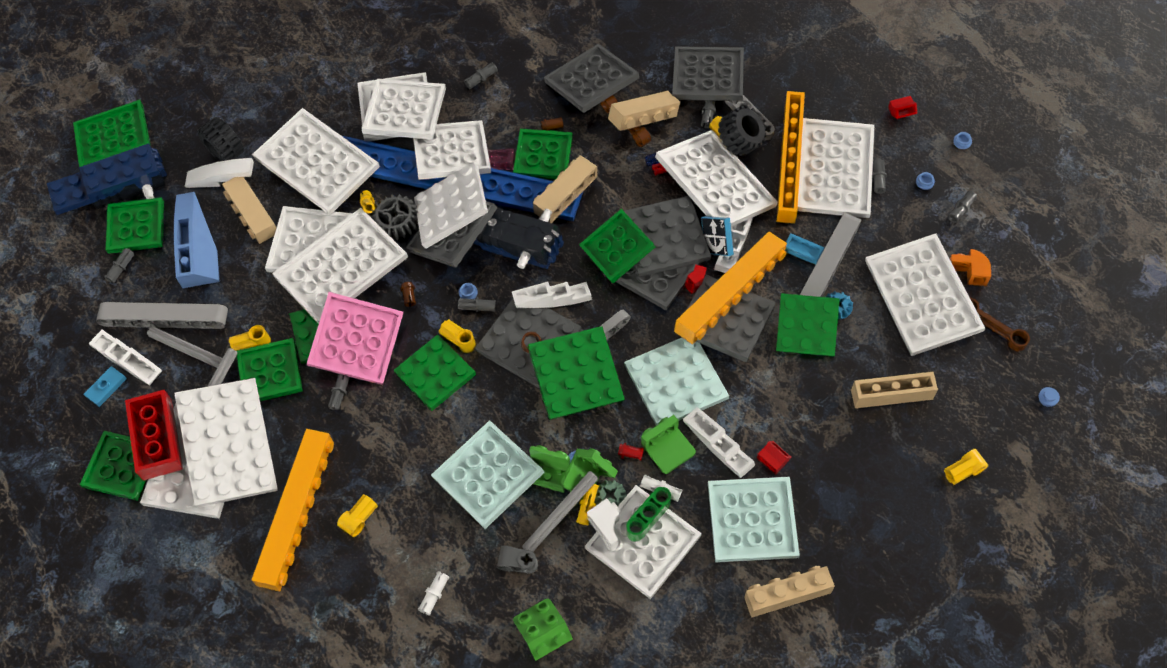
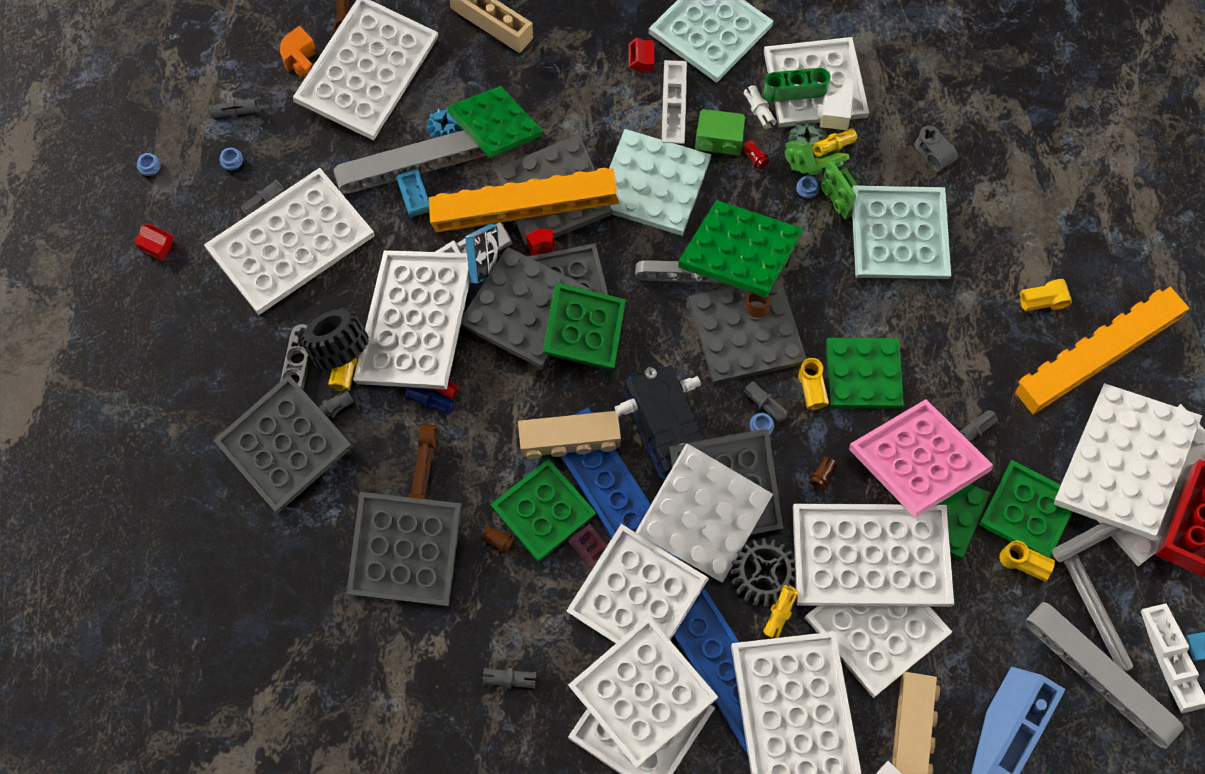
camera: 140 degrees left, 5 degrees up
(433, 593) = (1027, 183): white pin -> none
(542, 628) = (959, 88): bright green bracket -> none
(551, 296) = (689, 343): white slope -> none
(560, 512) = (866, 148): light grey axle -> none
(643, 110) = (400, 448): tan brick -> none
(790, 157) = (317, 280): light orange brick -> none

